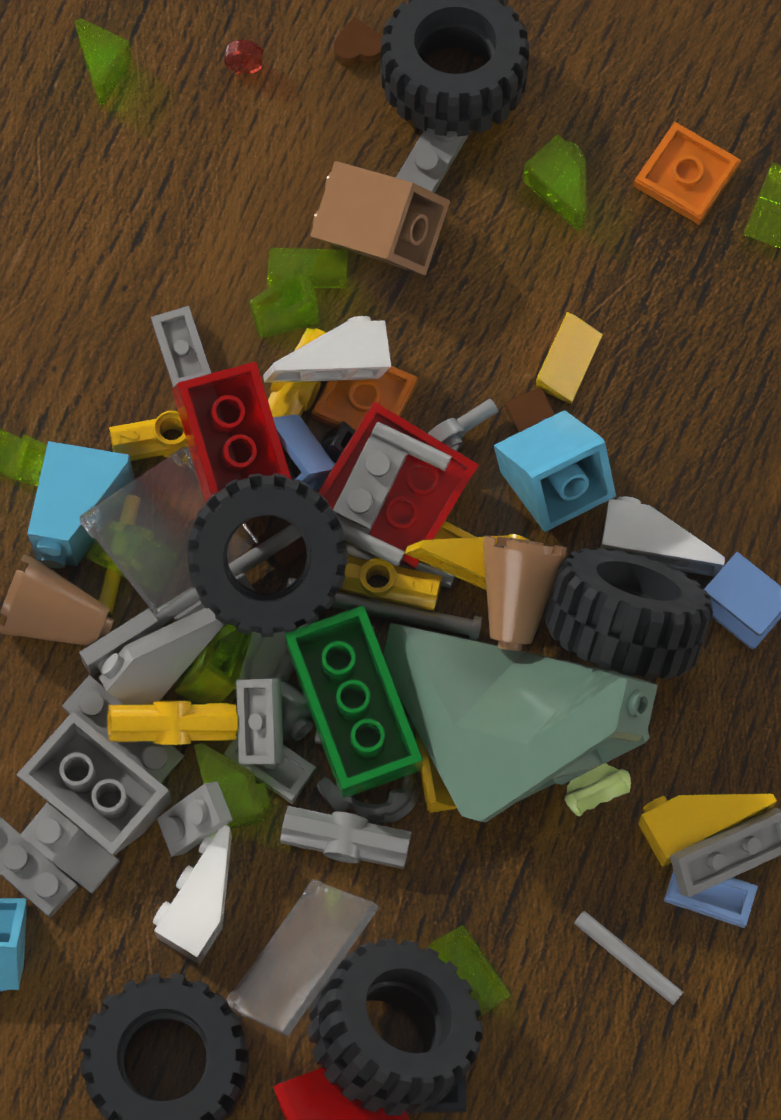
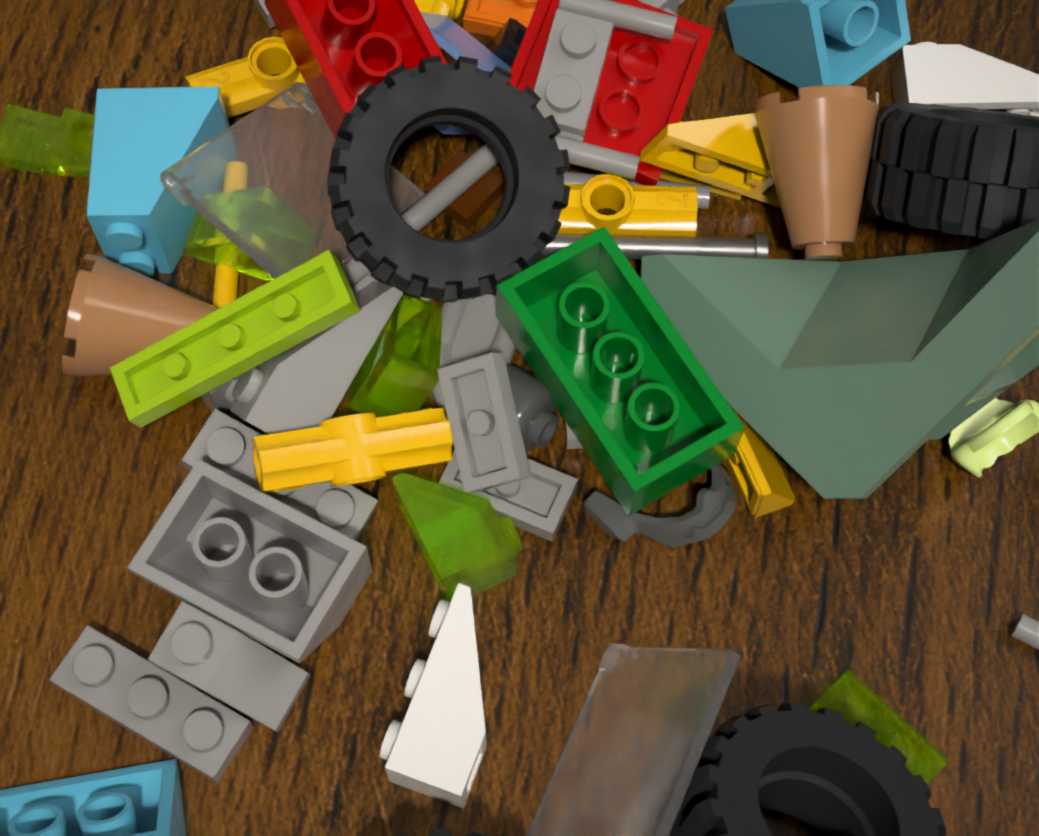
camera: 10 degrees left, 5 degrees down
(109, 635) = (234, 339): none -> lime plate
(194, 818) = (414, 585): light grey plate -> none
(345, 837) = (646, 573): light grey piece -> none

